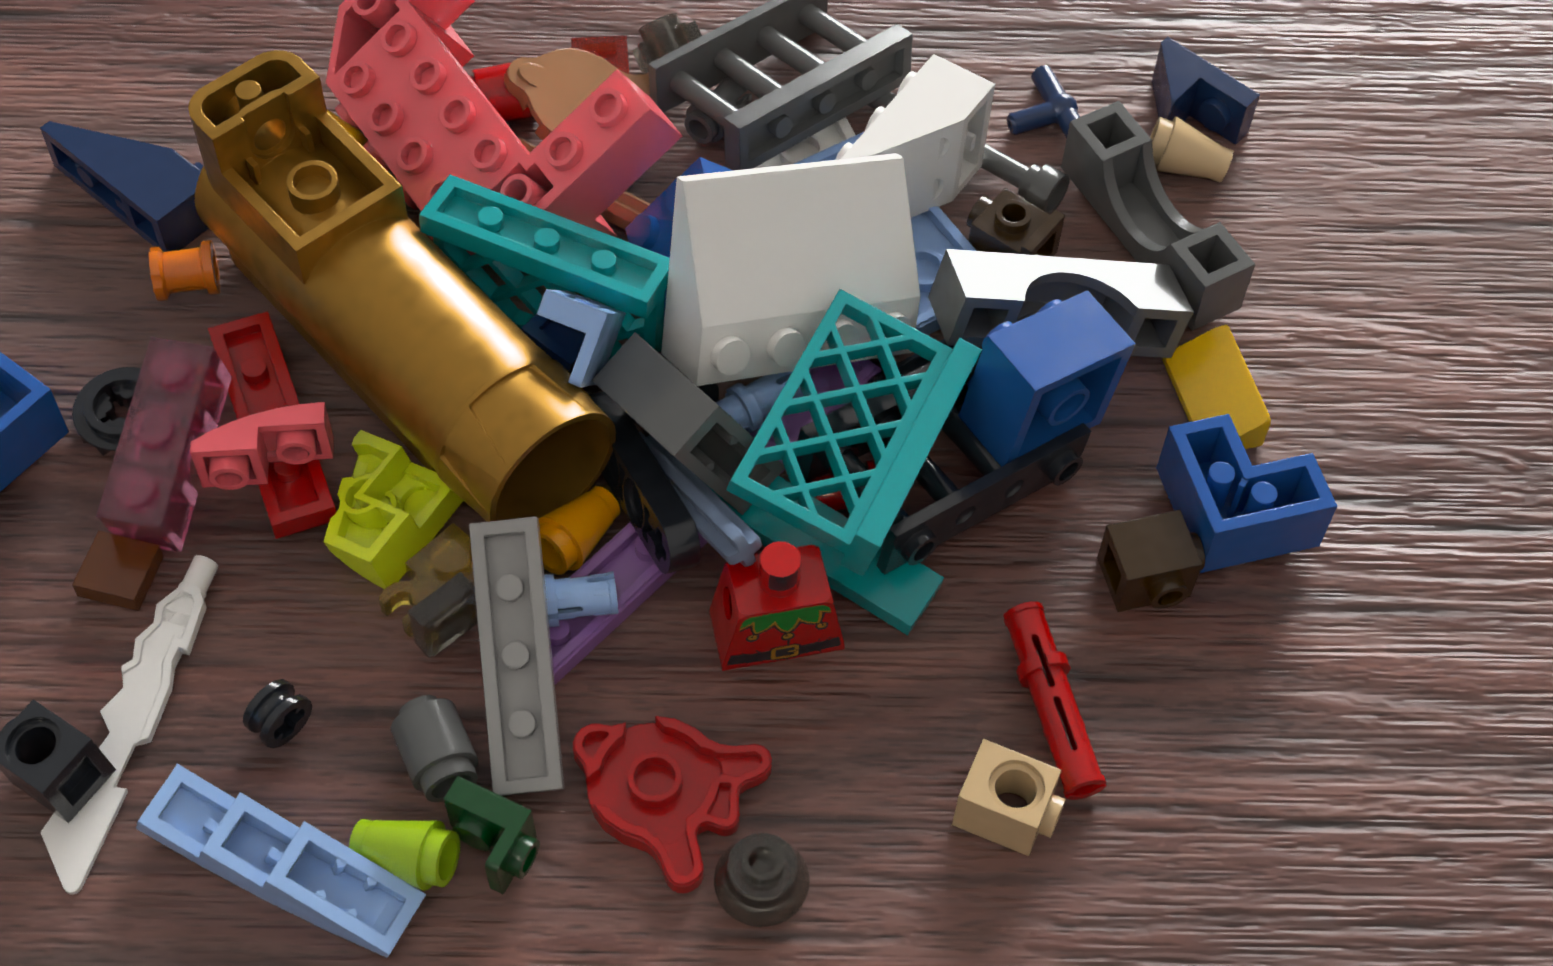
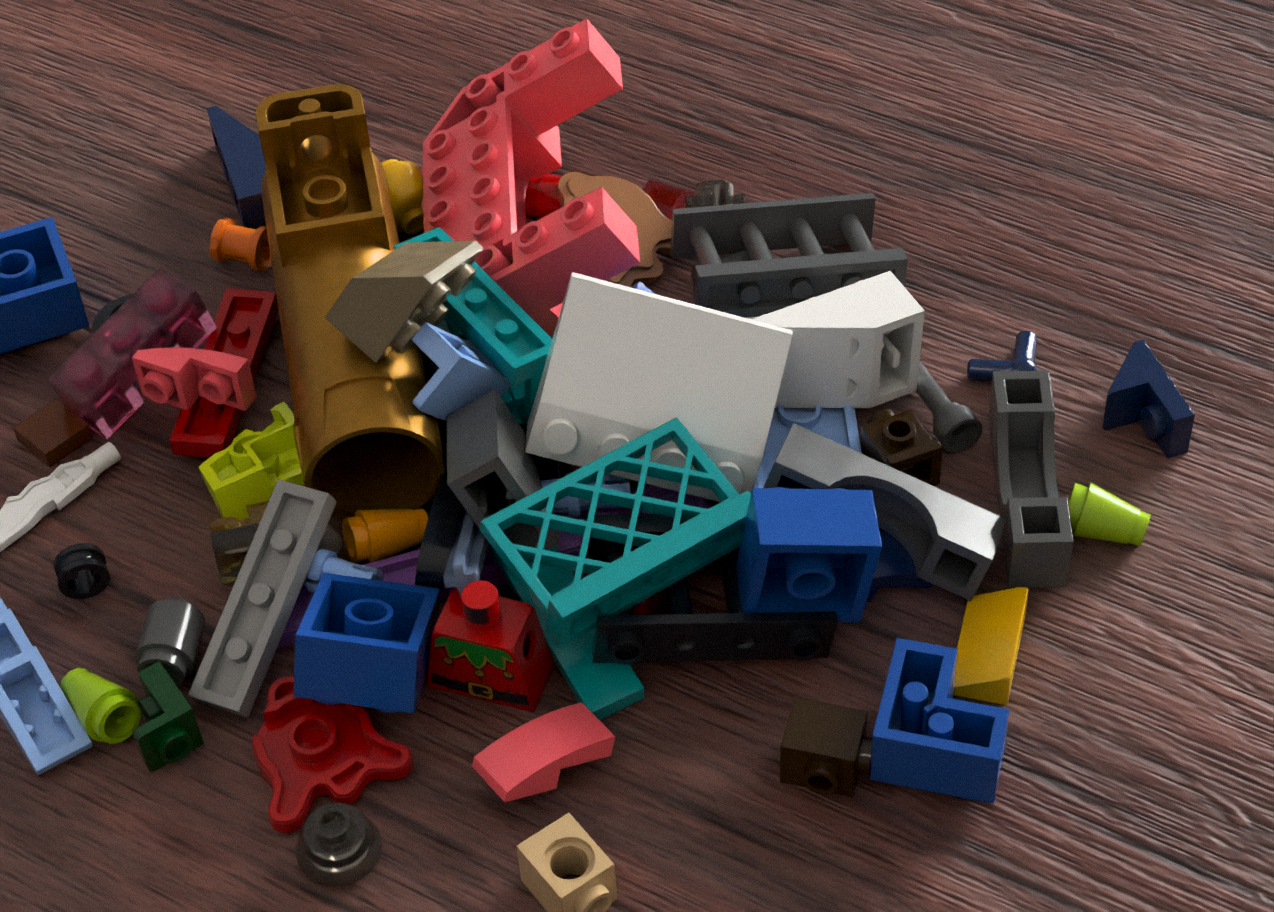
camera: 35 degrees right, 10 degrees down
(496, 264) = (402, 292): none -> dark tan slope
(661, 656) = (365, 643): none -> blue brick
(896, 687) = (533, 754): none -> coral slope
(1051, 695) = (672, 796): red pin -> none
(1187, 151) = (1105, 441): tan cone -> none
(1244, 221) = (1105, 516): none -> lime cone

